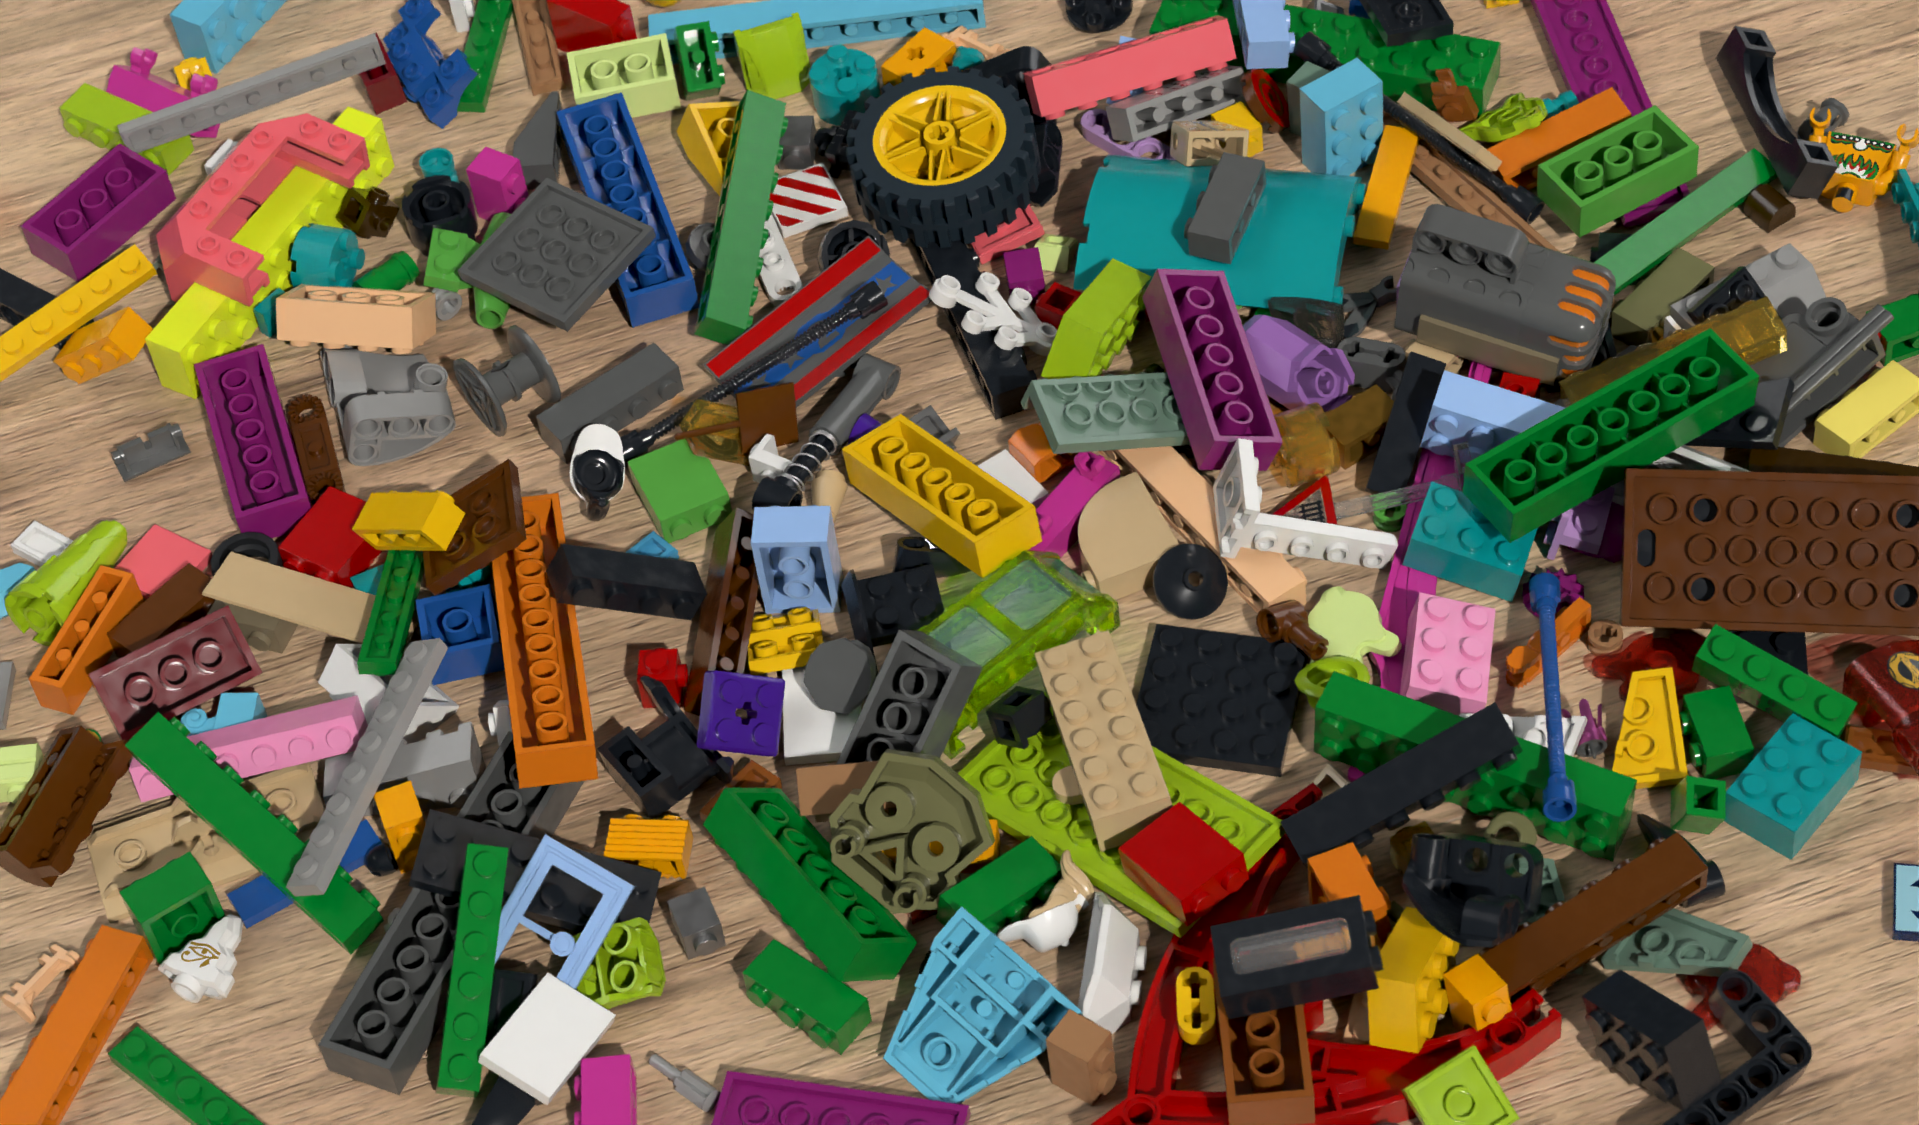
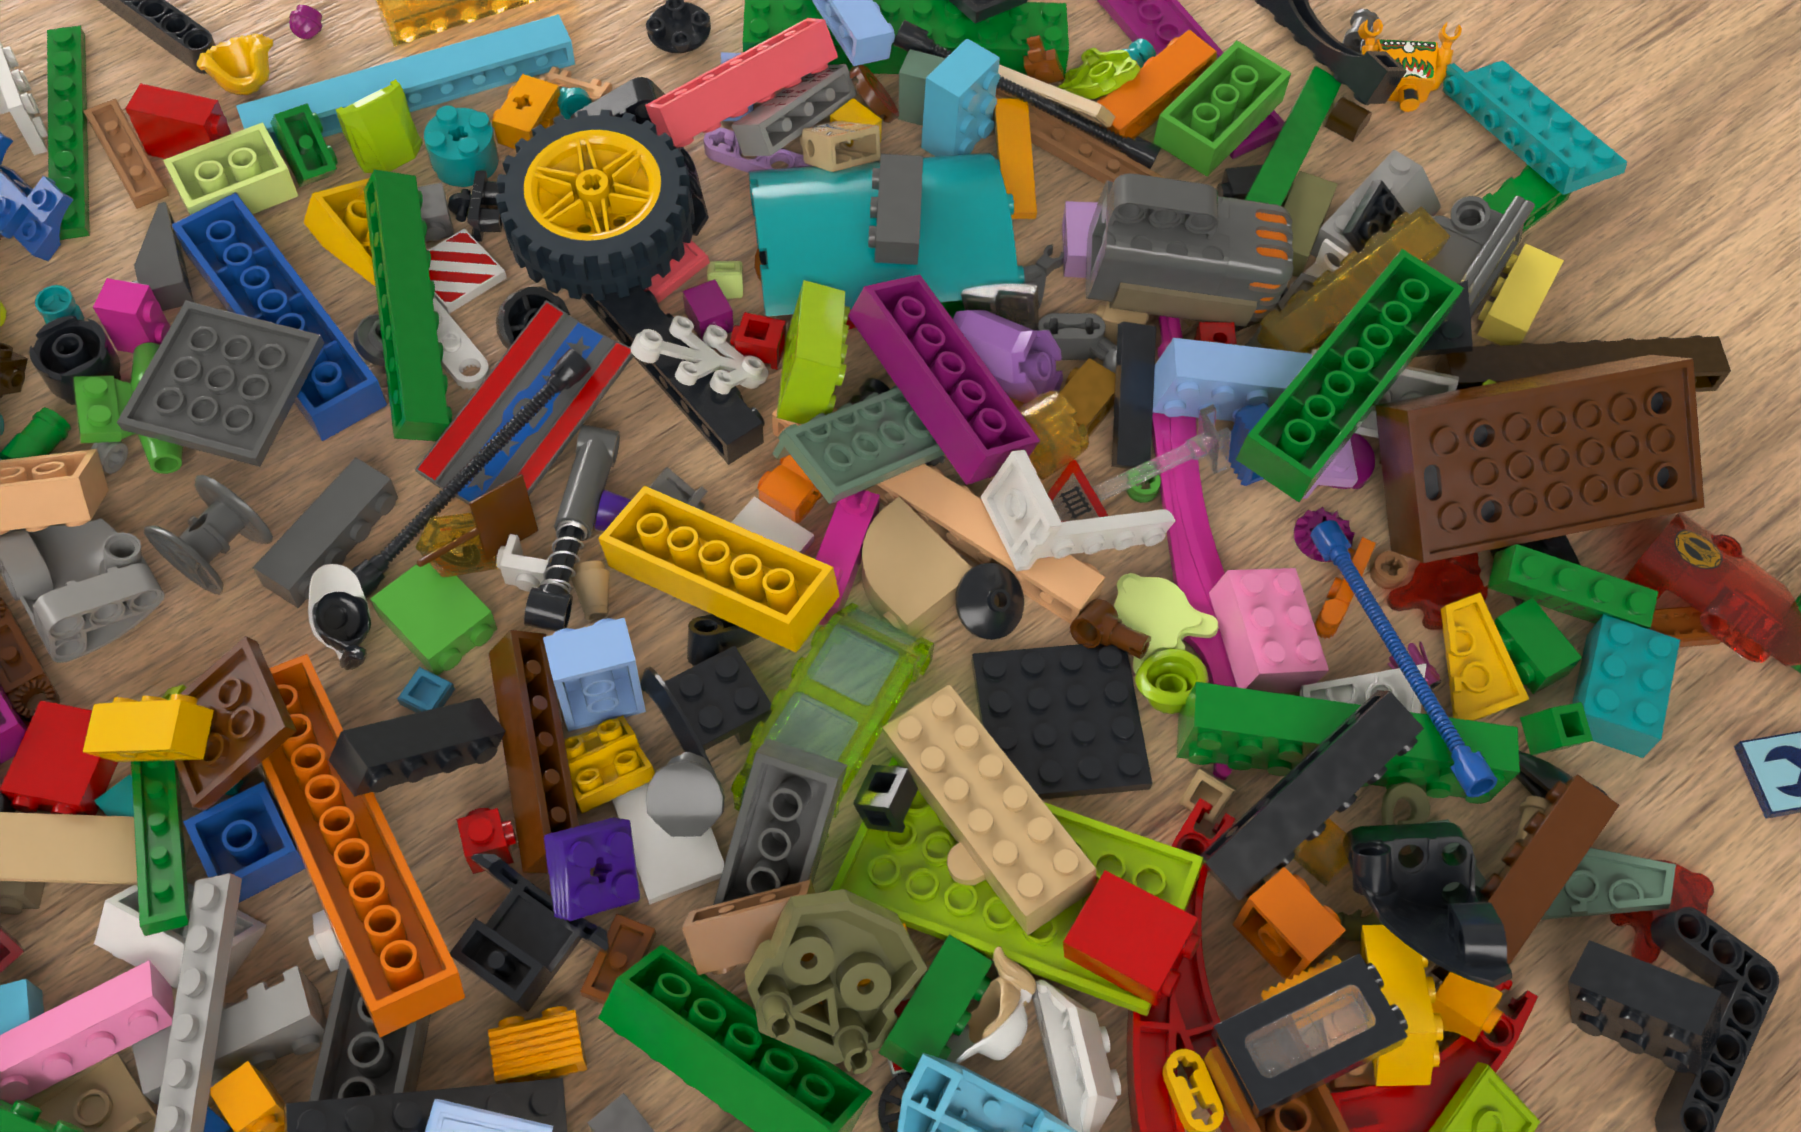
camera: 30 degrees left, 10 degrees up
(1464, 547) = (1234, 505): teal brick -> none

